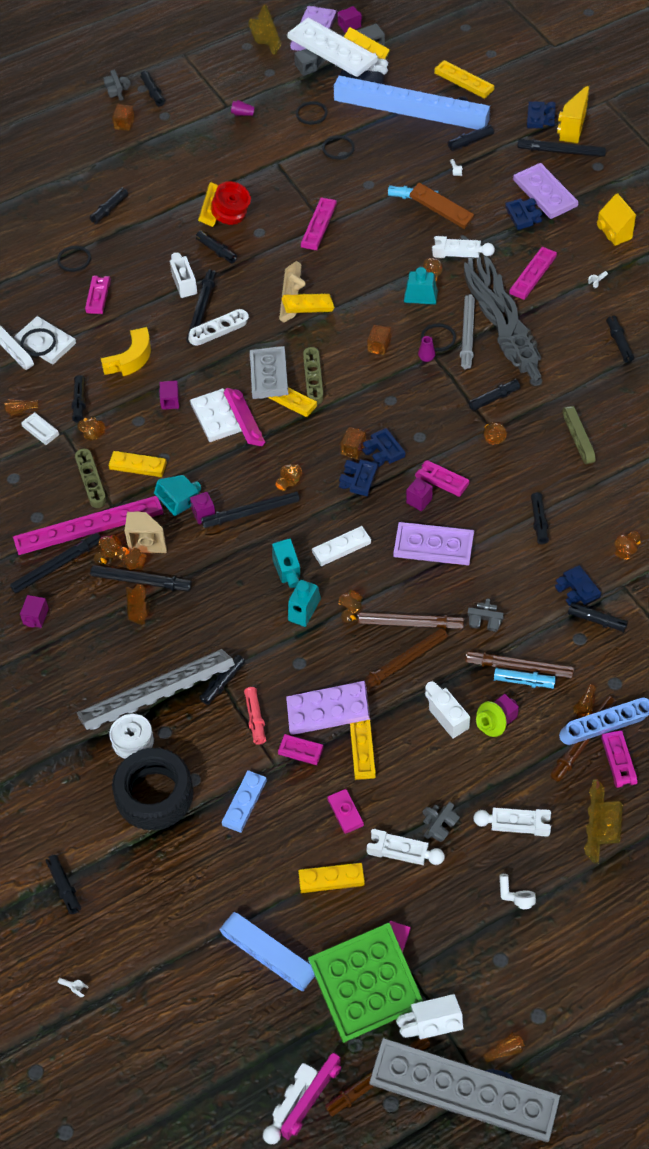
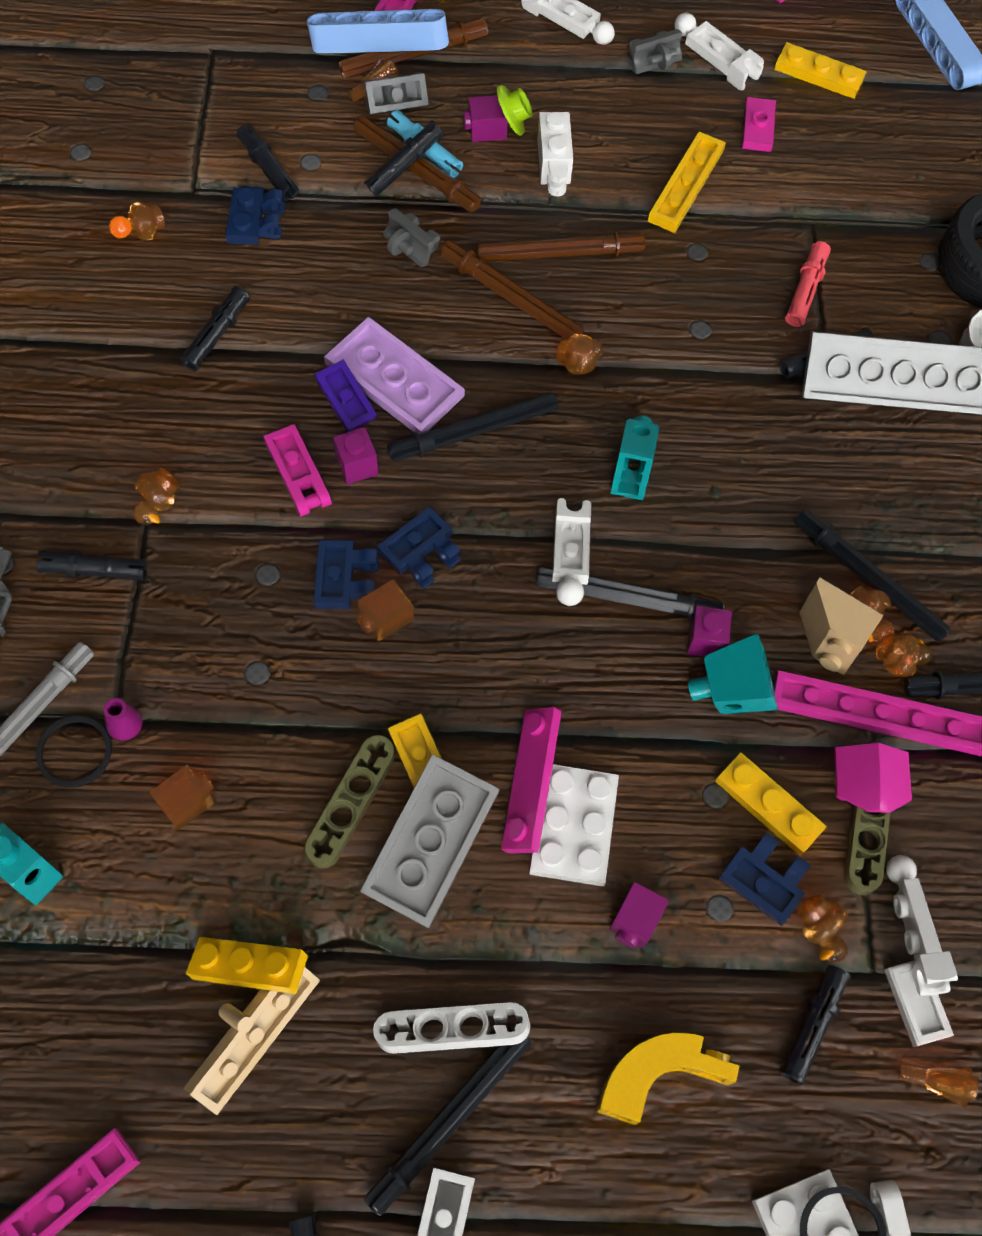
camera: 155 degrees left, 10 degrees up
(40, 431) = (932, 966): none -> white plate
(96, 487) = (872, 776): none -> dark pink slope
(124, 430) = (761, 884): none -> dark blue plate
(135, 604) = (902, 529): clear orange hinge -> none
(244, 801) = (879, 198): light blue plate -> none
(287, 504) = (571, 551): none -> white plate
(290, 476) = (530, 611): clear orange animal -> none
(300, 749) = (772, 212): dark pink plate -> none
(305, 597) = (646, 384): teal torso -> none
(328, 708) = (706, 235): lavender plate -> none
(341, 546) = (527, 456): white plate -> none
(376, 542) = (471, 427): none -> black axle
(447, 517) = (345, 396): none -> dark purple plate
(521, 656) = (404, 158): none -> black pin
(555, 696) = (395, 92): none -> brick
(579, 434) = (36, 418): olive beam -> none

